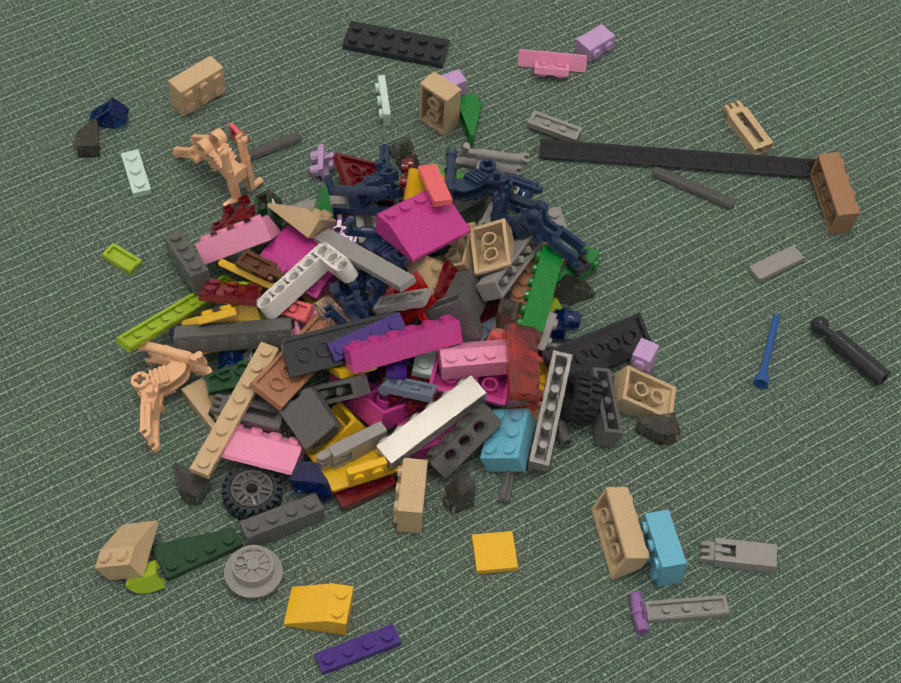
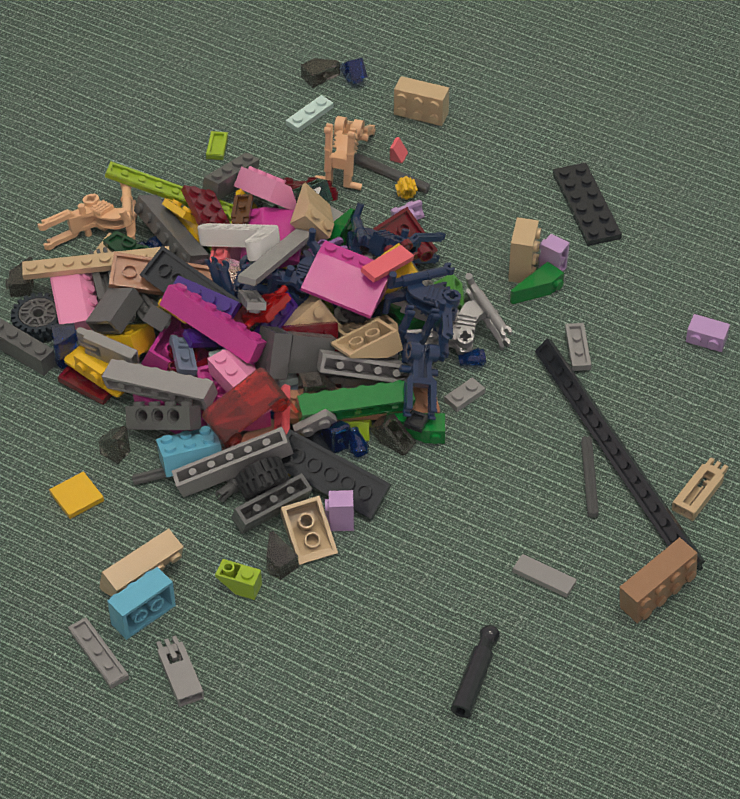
camera: 65 degrees right, 5 degrees down
(292, 148) = (406, 187): none -> yellow gear
(382, 100) = (507, 222): light aqua plate -> none
(401, 149) = (459, 257): clear smoke slope -> none
(410, 495) = (91, 411): tan brick -> none
(552, 63) = (653, 313): bright pink bracket -> none
(638, 613) = (61, 624): medium lavender pin -> none
(672, 464) = (240, 578): none -> lime slope
(762, 379) = (392, 613): blue piece -> none

